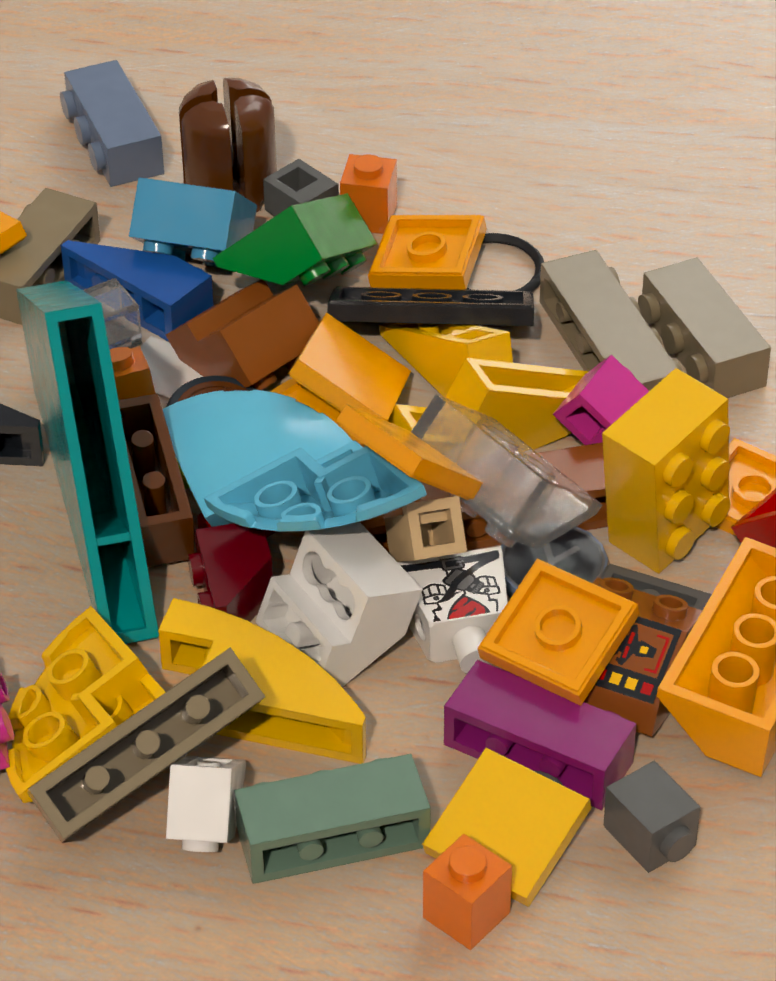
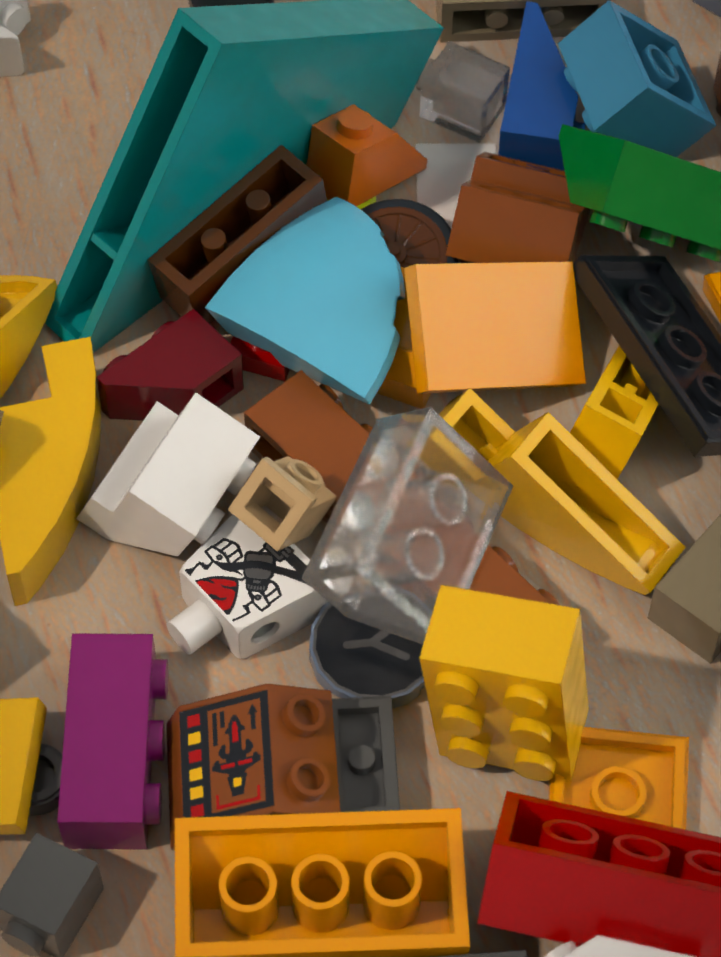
camera: 60 degrees right, 15 degrees up
(316, 494) = (251, 383): medium azure brick -> none
(408, 453) = (320, 424): light orange tile -> none
(558, 631) = (208, 688): light orange tile -> none
(599, 400) = (608, 587): dark pink slope -> none

